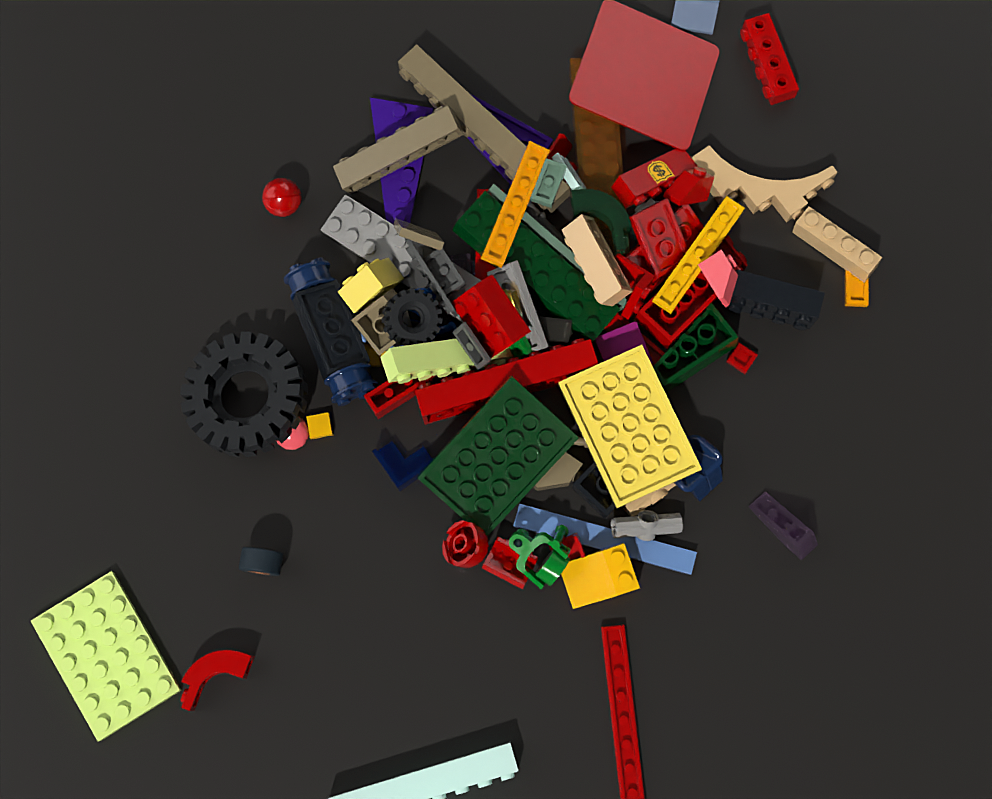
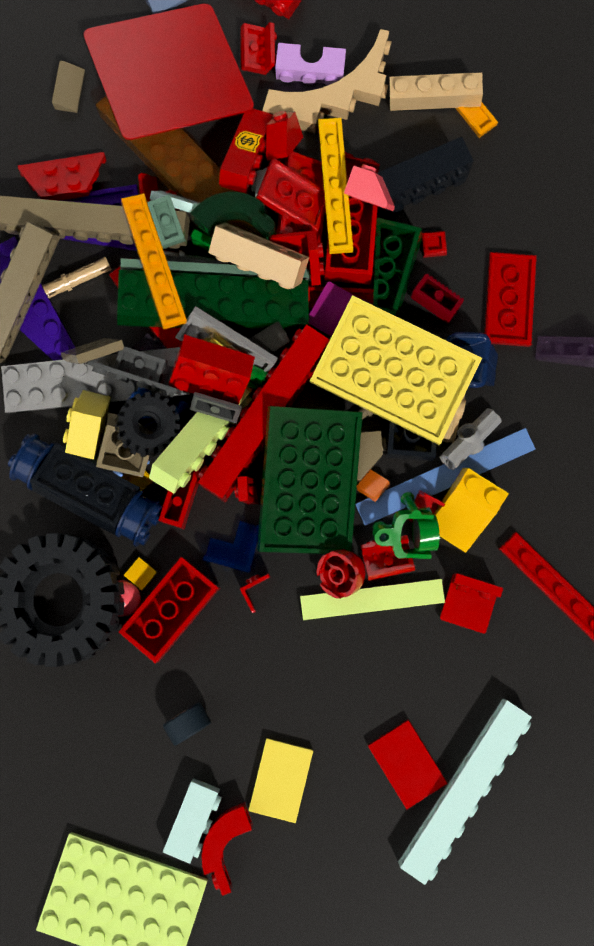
camera: 40 degrees left, 5 degrees up
(206, 636) = (192, 821): none -> light aqua brick
(294, 662) = (281, 780): none -> light yellow tile
(317, 468) = (169, 610): none -> red brick
(393, 498) = (252, 582): none -> red bracket
(396, 730) = (407, 764): none -> red tile
(446, 426) = (247, 490): none -> red plate
(453, 173) = (72, 279): none -> tan pin
(474, 586) = (373, 599): none -> yellowish green tile
(504, 93) = (63, 177): none -> red wing
(543, 648) = (469, 602): none -> red bracket
(544, 500) = (373, 485): none -> orange tile
(562, 30) = (68, 87): none -> dark tan slope
(566, 216) = (201, 240): none -> green tile
(708, 400) = (437, 298): none -> dark red brick
(727, 109) = (258, 48): none -> red bracket
(766, 446) = (510, 298): none -> red tile
(767, 165) = (293, 68): none -> lavender arch

